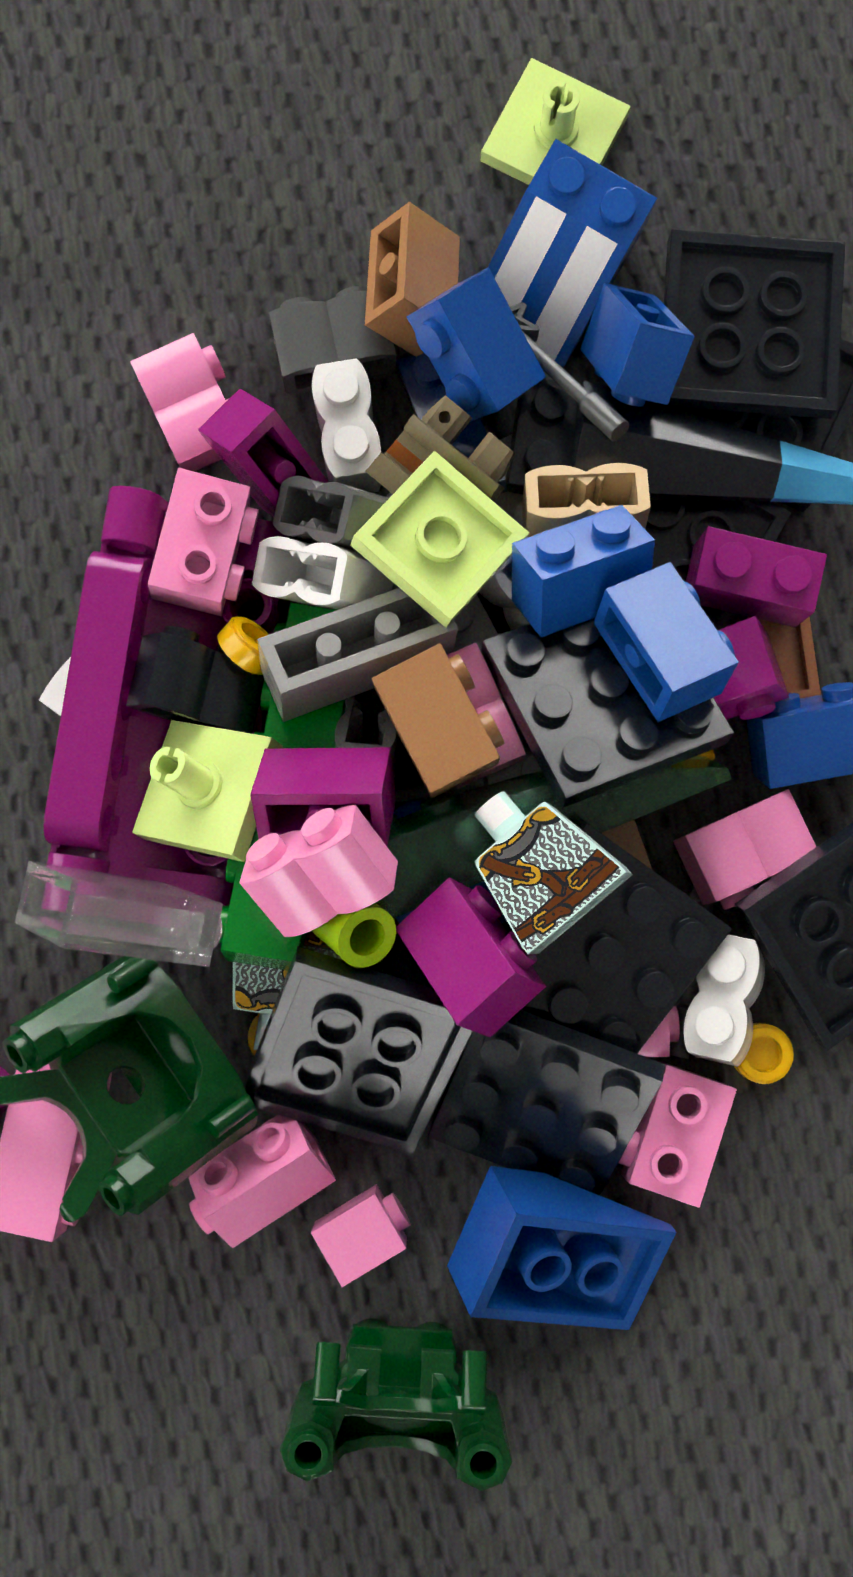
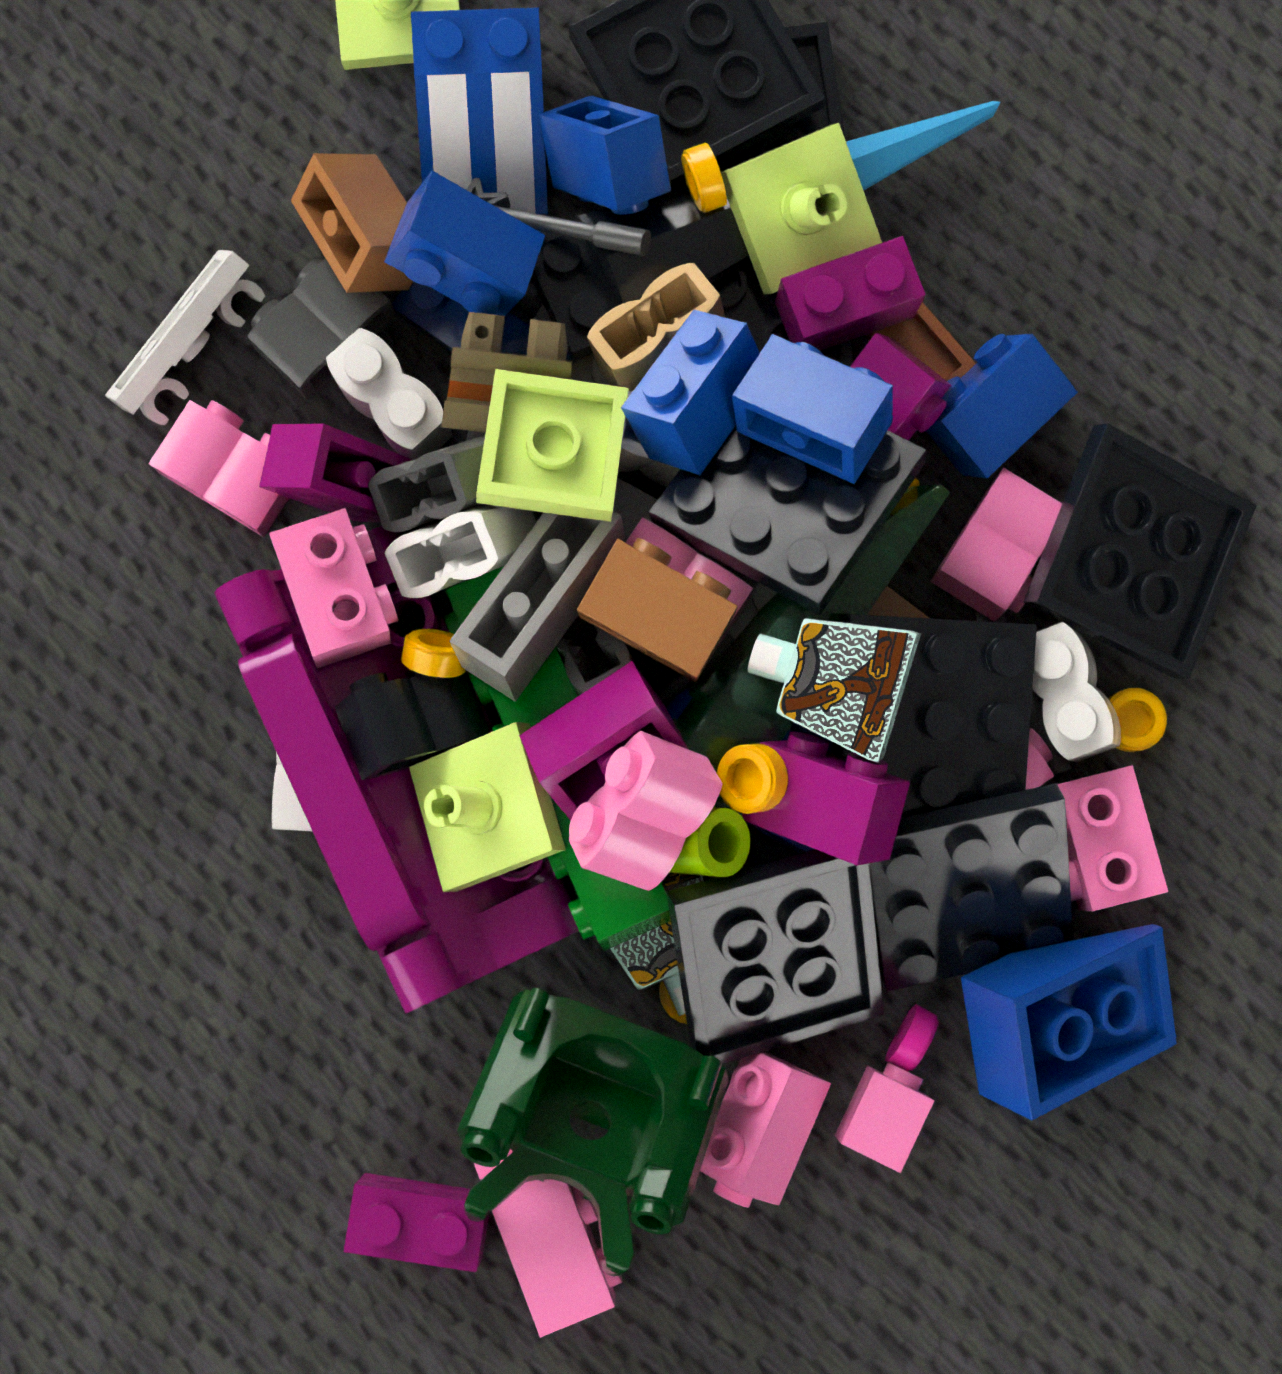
camera: 30 degrees left, 0 degrees up
(118, 915) = (487, 969): clear brick -> none
(223, 283) = (183, 335): none -> white plate
(400, 1393) = (1016, 1231): dark green piece -> none
(422, 901) = (752, 778): none -> yellow tile
(423, 1187) = (912, 1038): none -> dark pink tile
(699, 410) = (704, 178): none -> yellow tile
(761, 480) = (800, 206): none -> yellowish green tile

